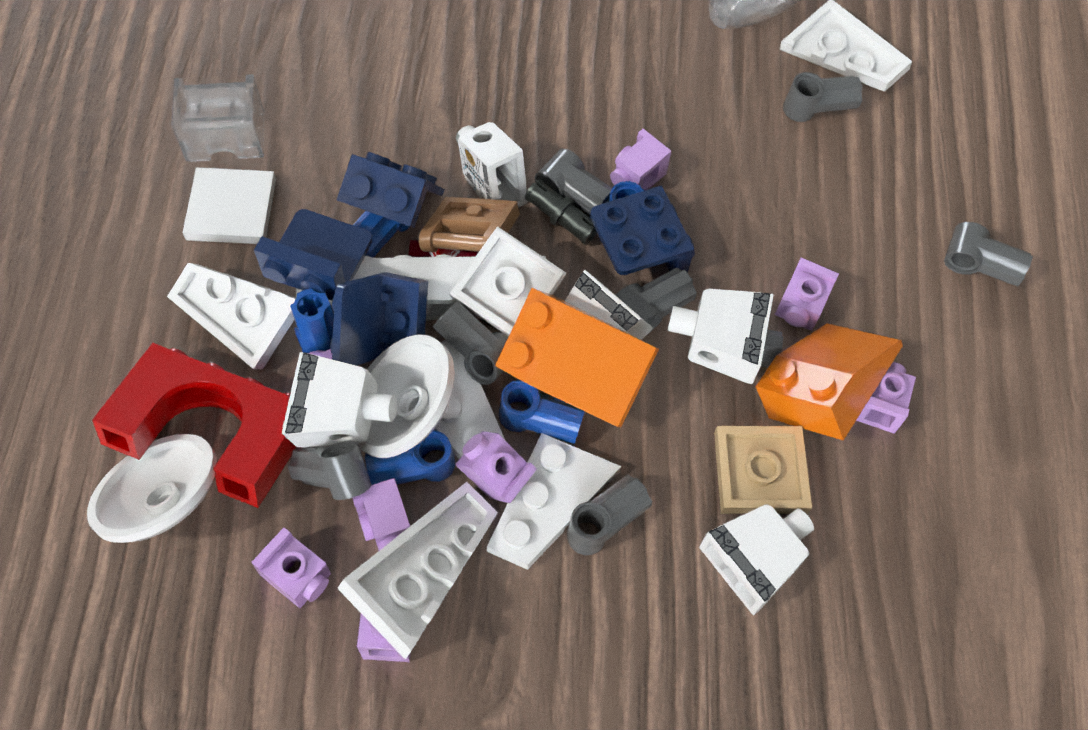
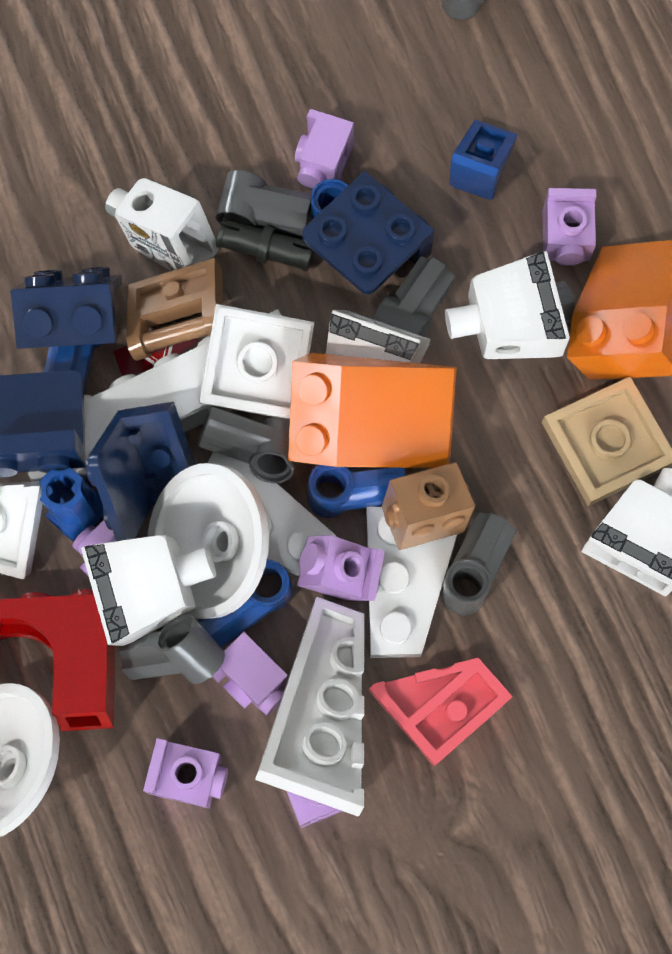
camera: 20 degrees left, 10 degrees up
(524, 613) = (442, 705): none -> coral wing
(587, 448) = (427, 506): none -> medium nougat head
(756, 217) = (481, 158): none -> blue slope

